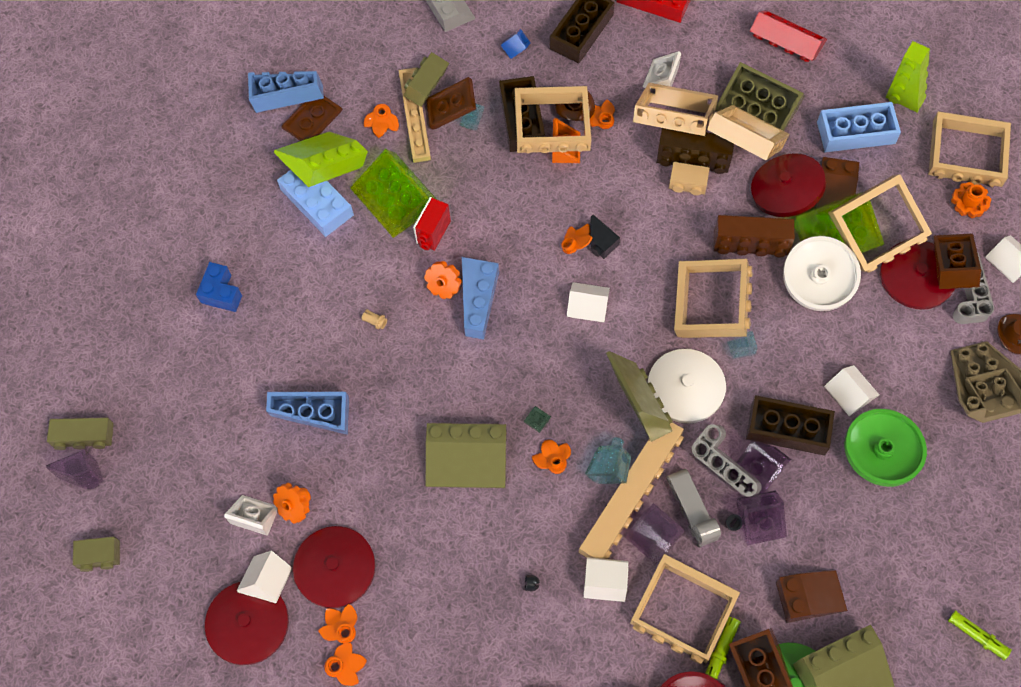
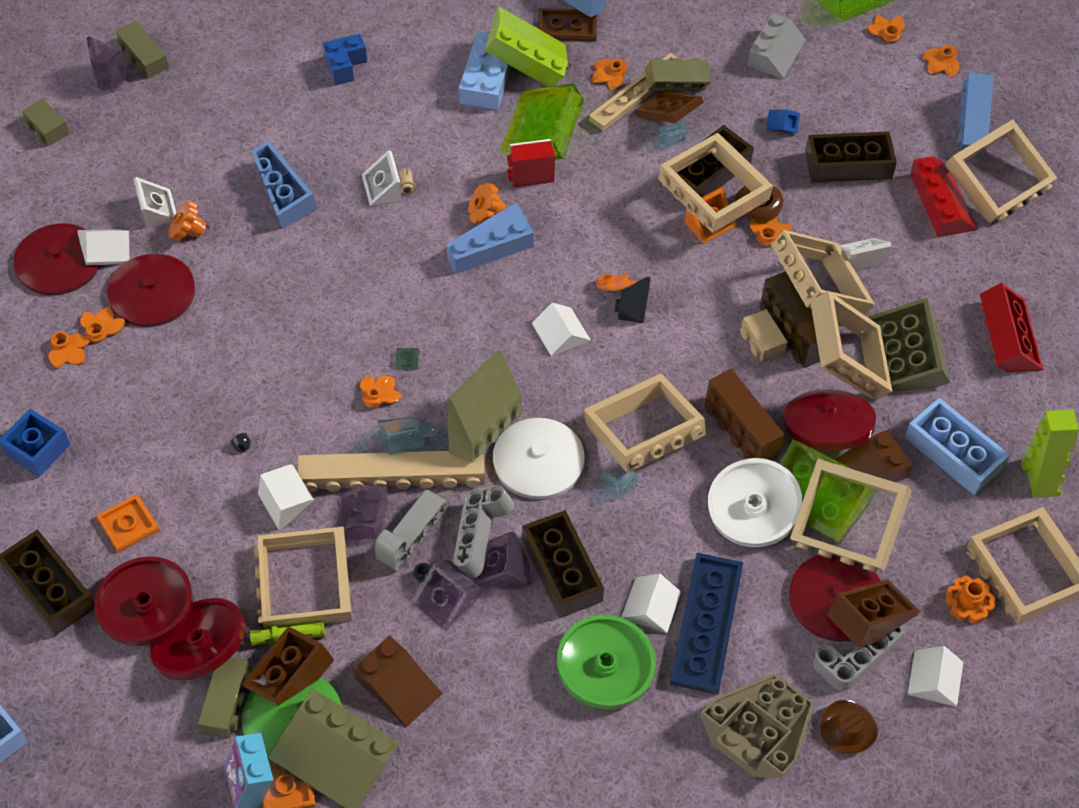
camera: 50 degrees right, 10 degrees down
(362, 335) = (382, 181): none -> white slope
(466, 455) = (327, 322): olive slope -> none
(890, 365) = (706, 624): none -> dark blue plate

